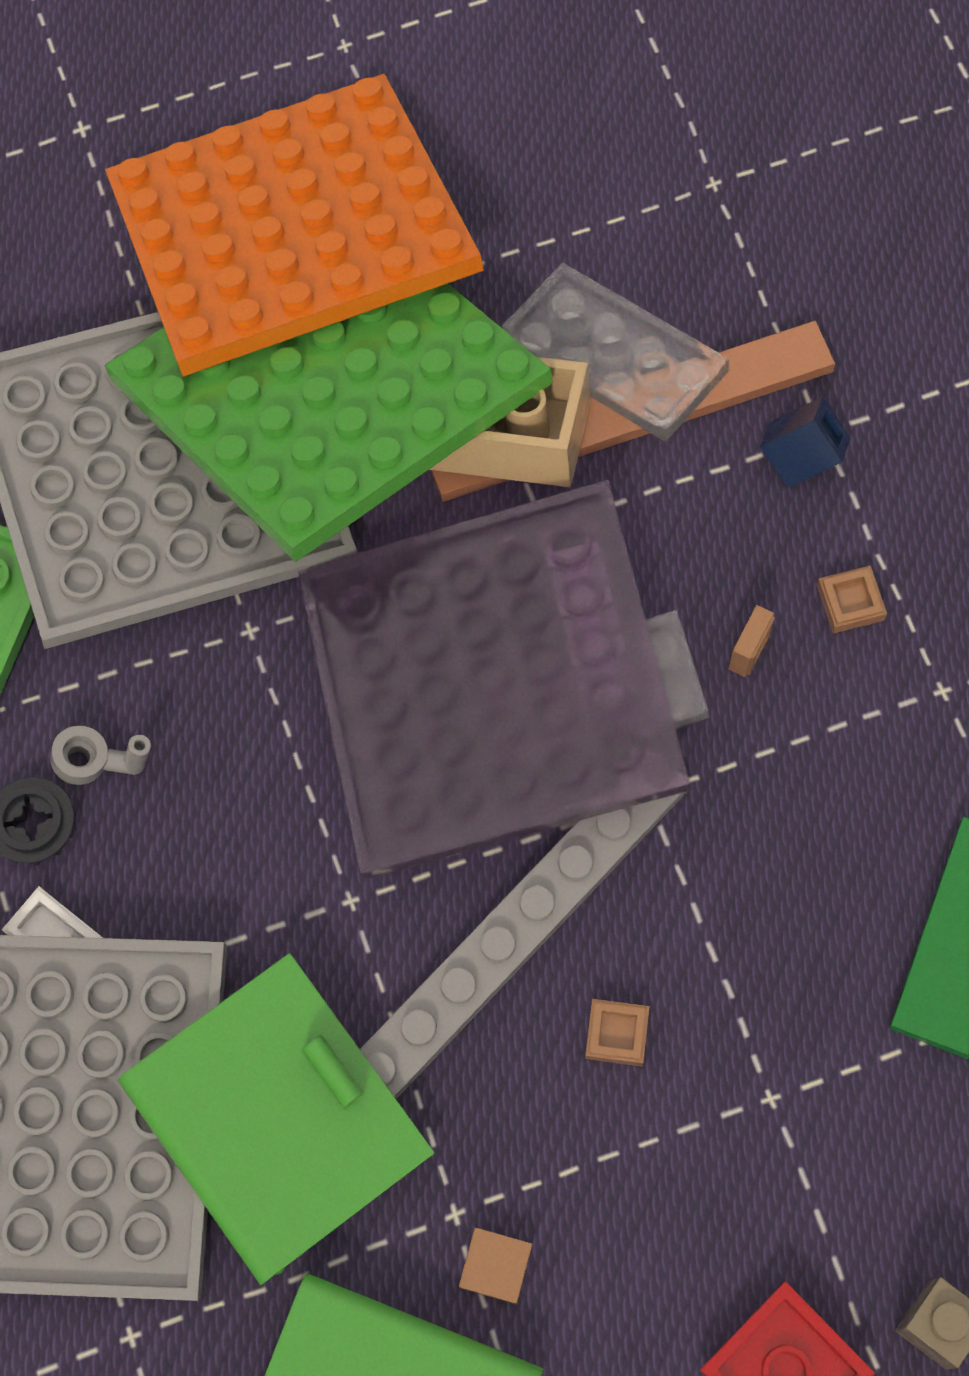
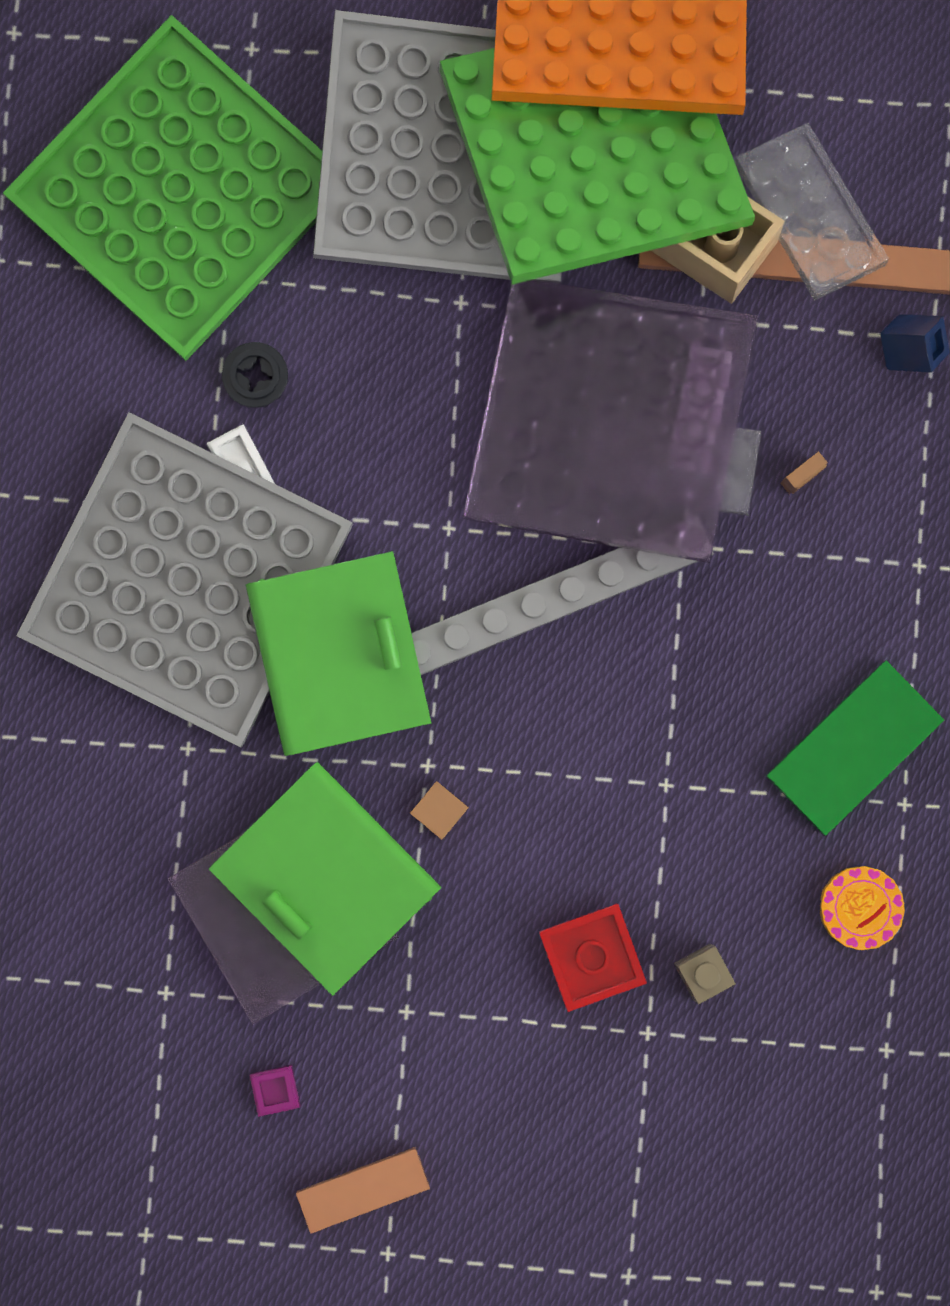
camera: 15 degrees right, 15 degrees up
(100, 758) = (319, 349): light grey plate -> none
(617, 1032) = (586, 697): medium nougat tile -> none
(851, 599) = (889, 472): medium nougat tile -> none

